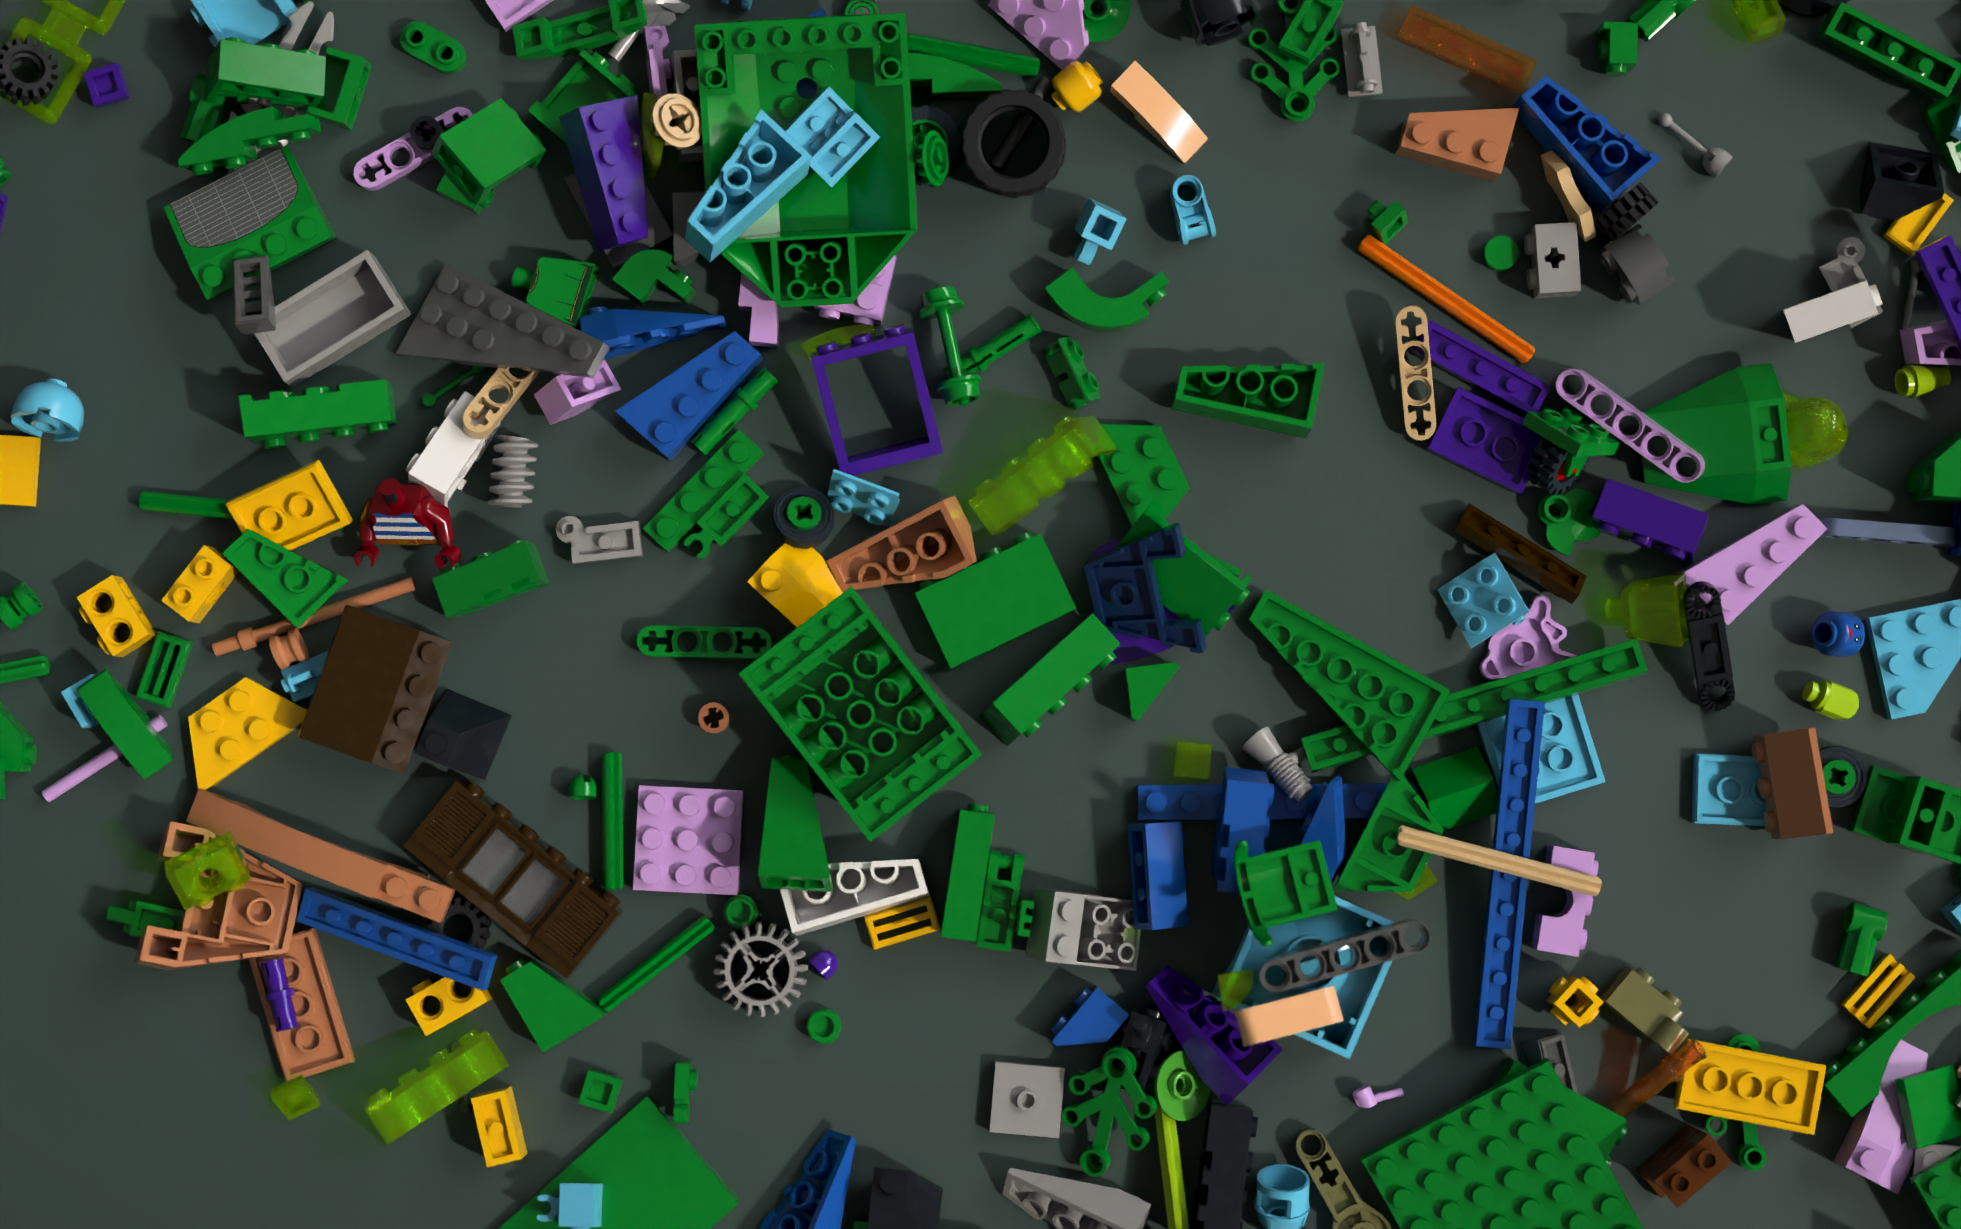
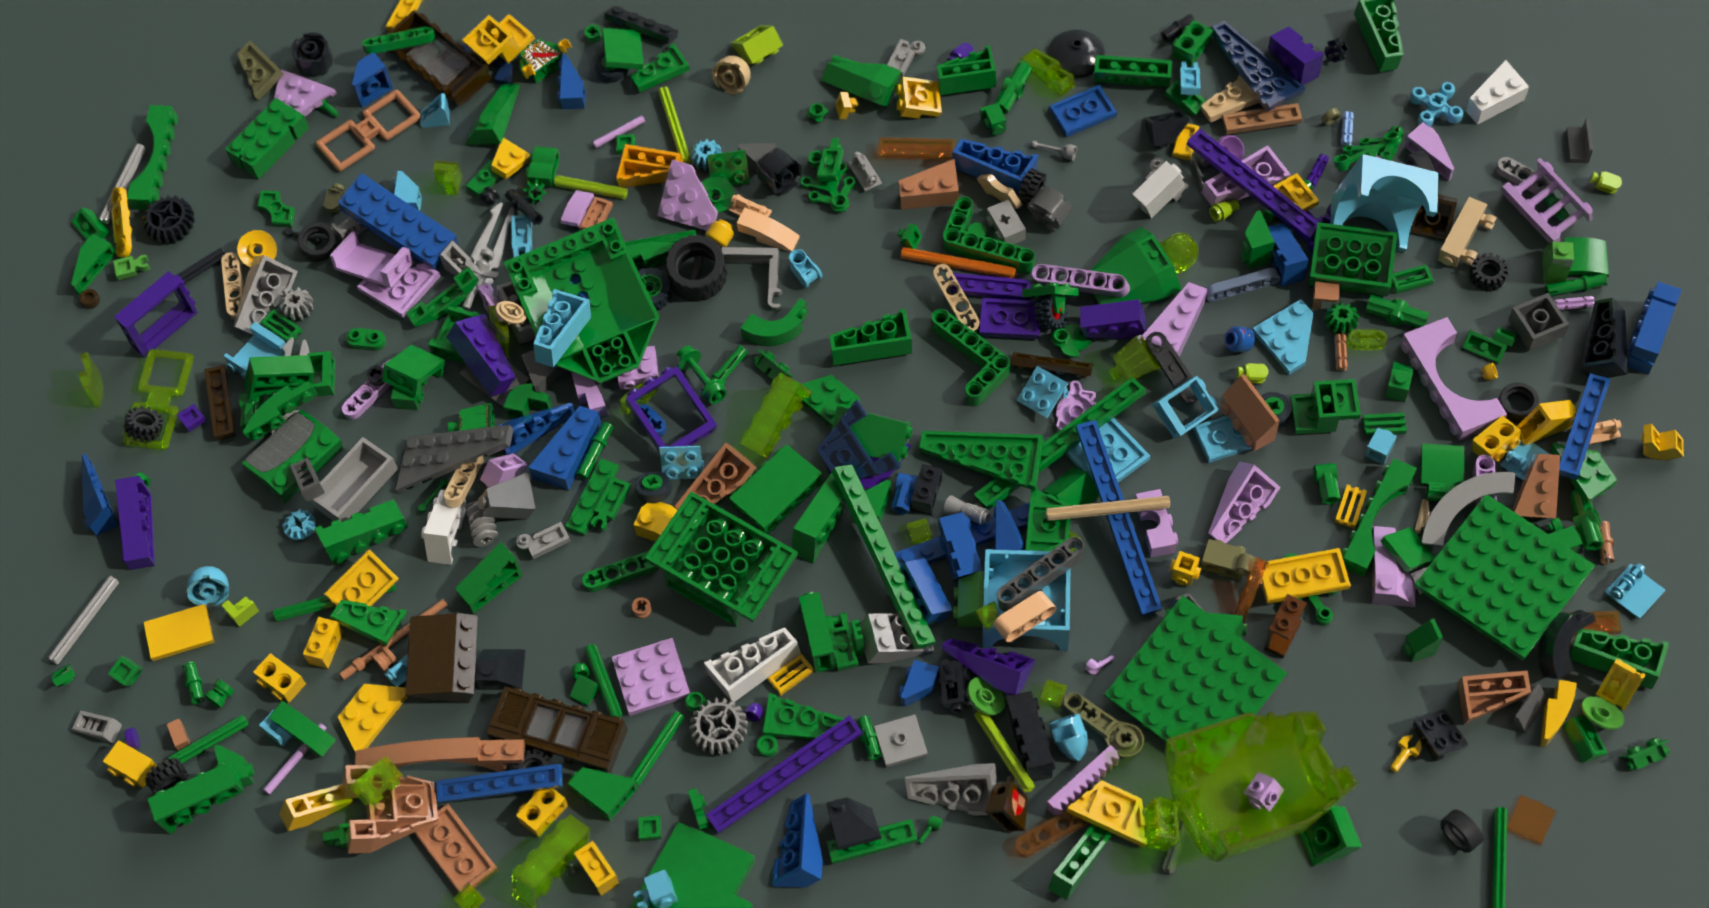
camera: 10 degrees left, 25 degrees down
(90, 470) = (240, 611): none -> lime panel
(107, 855) = (313, 806): none -> yellow slope
(160, 74) = (219, 402): none -> dark brown plate
(176, 674) = (323, 703): green tile -> none
(238, 361) = (295, 532): none -> medium azure gear
(279, 995) = (440, 842): dark purple pin -> none
(405, 517) = (428, 562): dark red torso -> none
(567, 452) = (508, 499): none -> slope
(578, 824) = (584, 690): none -> green slope
(792, 836) = (709, 640): green slope -> none
(831, 135) = (600, 292): medium azure slope -> none
(831, 1091) = (784, 774): none -> dark purple plate
(850, 388) = (654, 418): none -> blue beam
(889, 1011) = (795, 721): none -> green wing
(932, 158) = (655, 285): green gear -> none
(980, 1077) = (869, 737): none -> green pin
(1097, 226) = (757, 292): medium azure brick -> none
(1110, 1106) = (948, 720): green plant -> none
(1116, 794) = (883, 557): none -> green plate
(1128, 156) = (758, 255): none -> light grey hinge
(1138, 46) = (740, 203): none -> light nougat hinge
(1199, 682) = (904, 490): none -> blue piece
(1219, 925) = (970, 598): none -> bright green slope
(1231, 698) = (926, 489): none -> black brick
(1282, 886) = (990, 551): green piece -> none
(1287, 1118) = (1053, 693): none -> clear neon green plate
(1404, 483) = (973, 352): none -> green beam
(1498, 282) = (980, 243): none -> green beam
(1705, 749) = (1170, 418): none -> medium azure window
(1721, 907) = (1243, 497): none -> lavender wedge
(1773, 86) = (1082, 111): none -> blue tile

